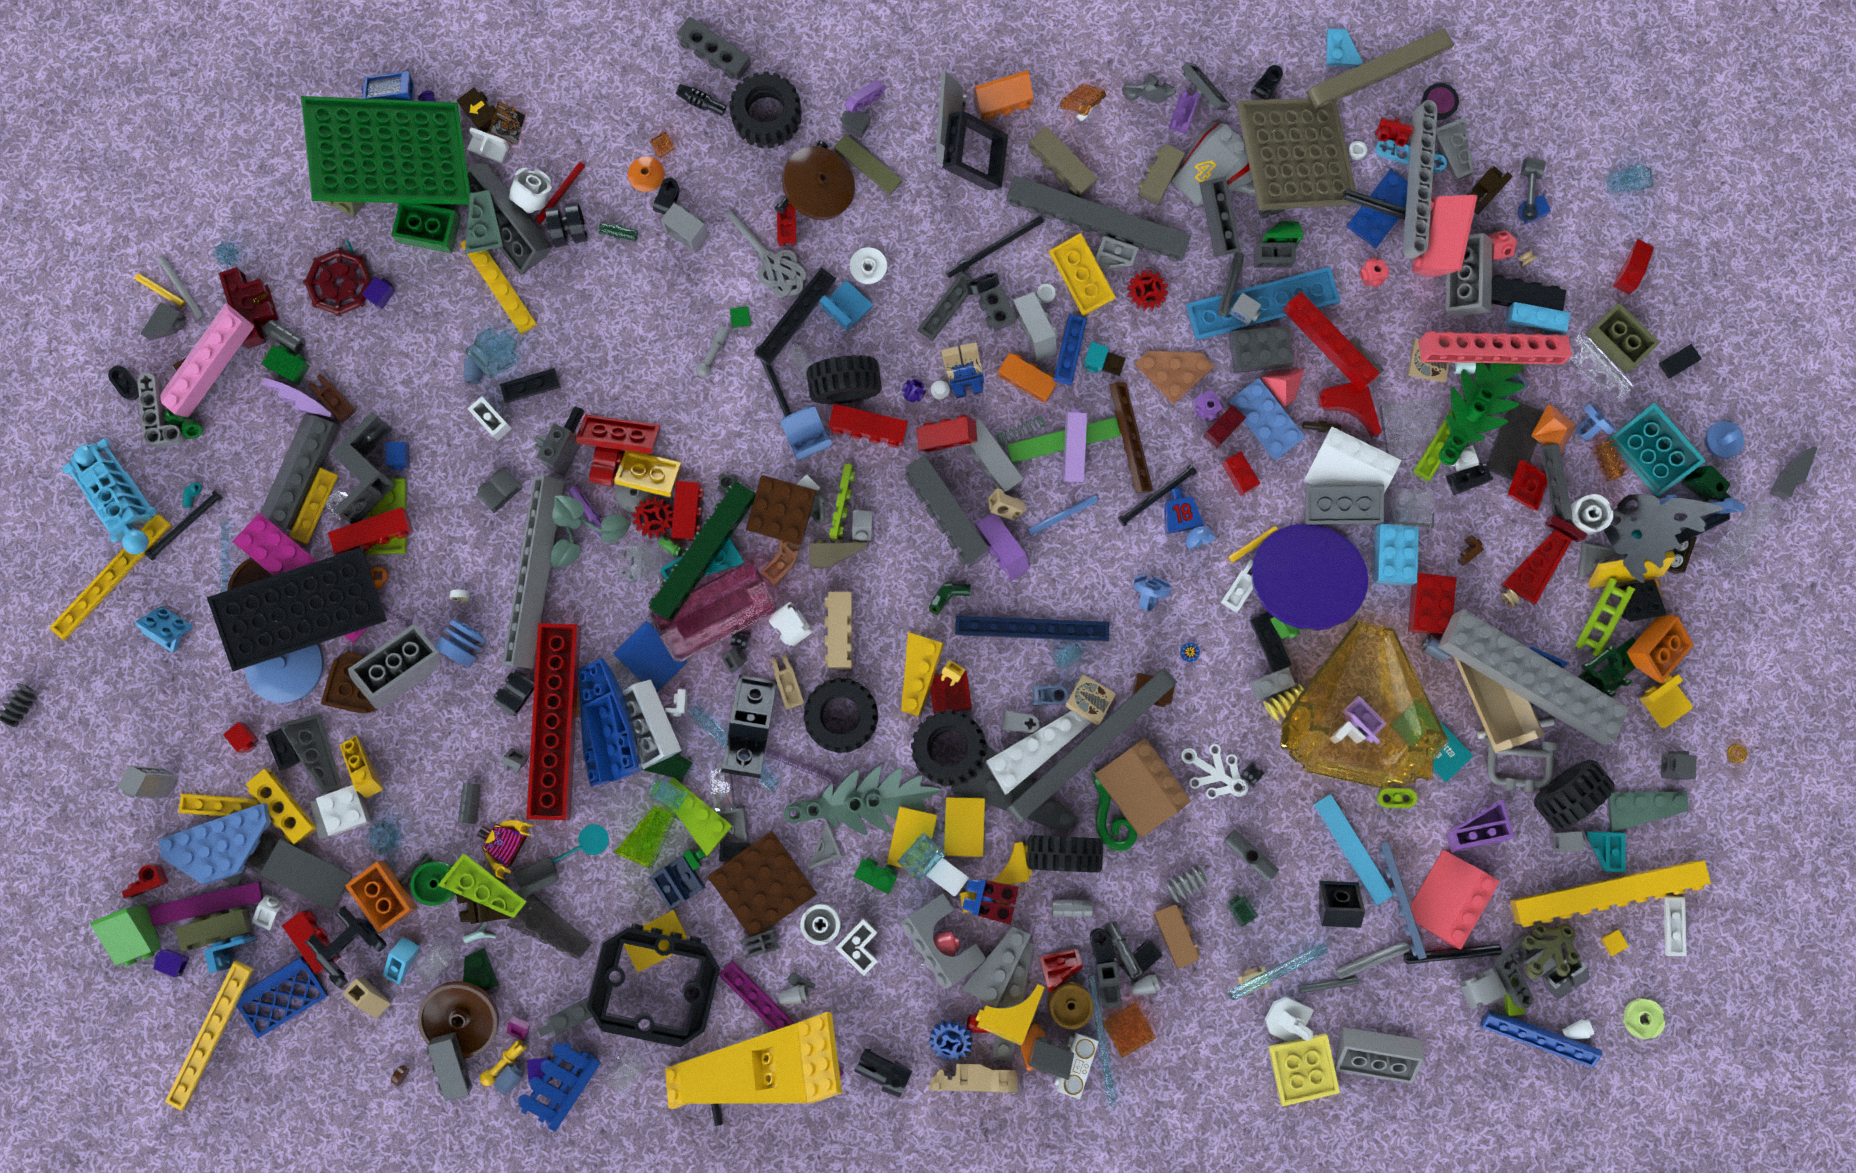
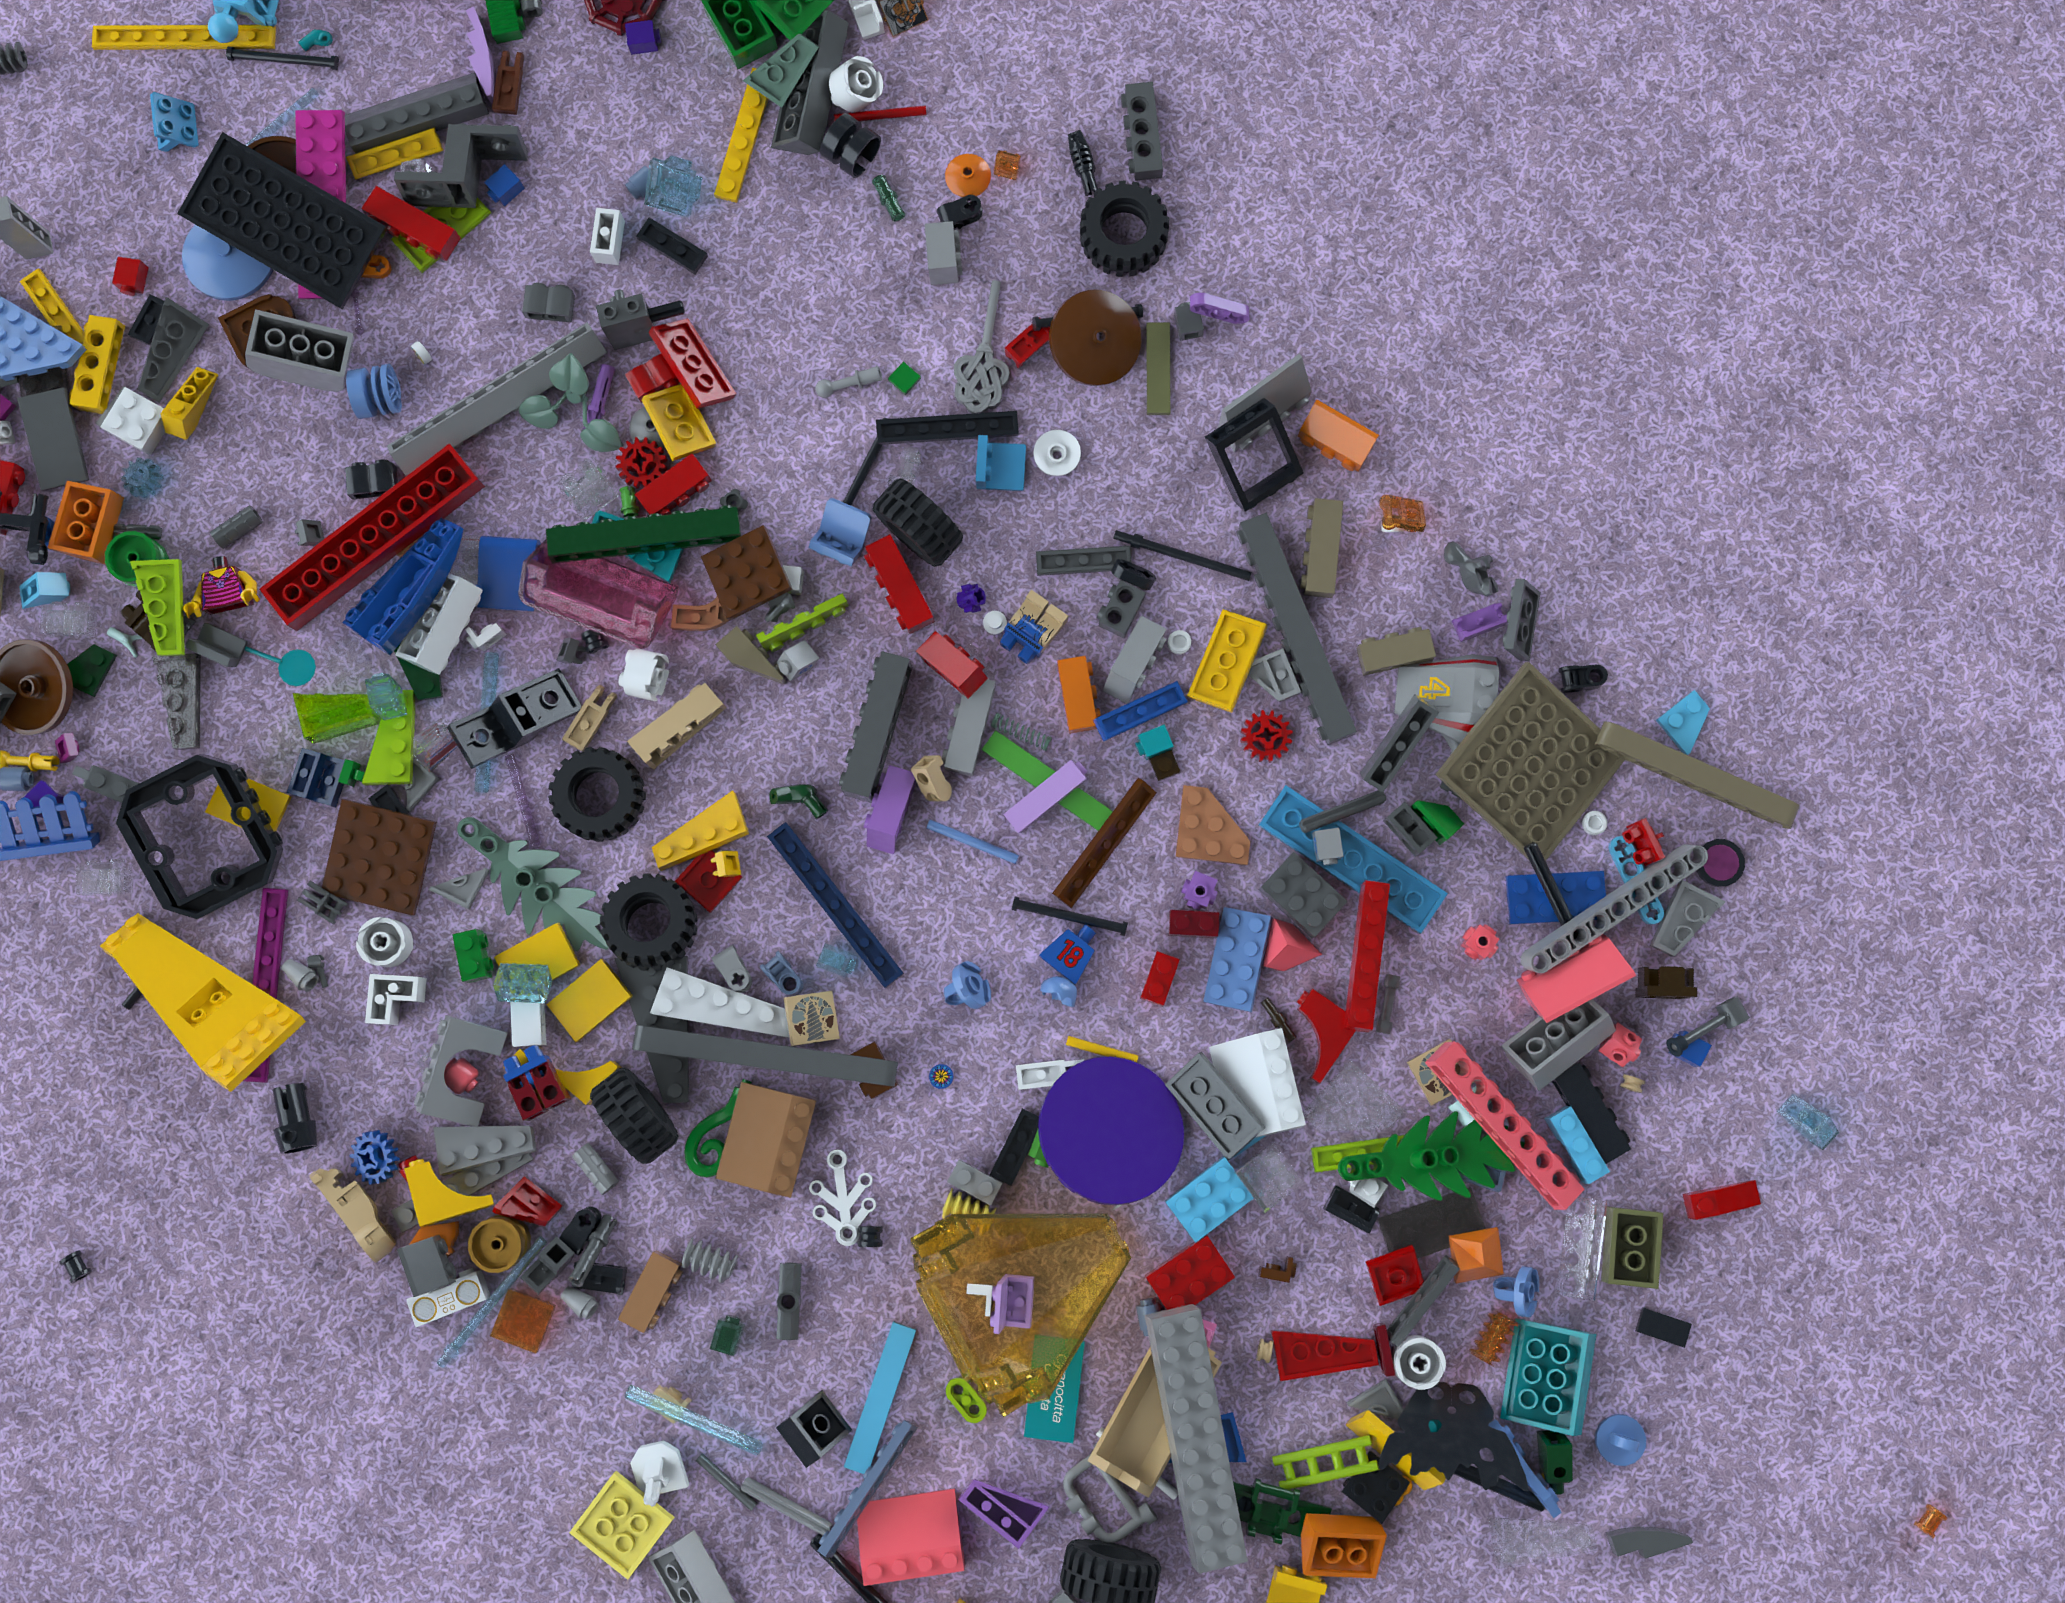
camera: 60 degrees right, 0 degrees up
(1682, 557) = (1455, 1491): slope -> none

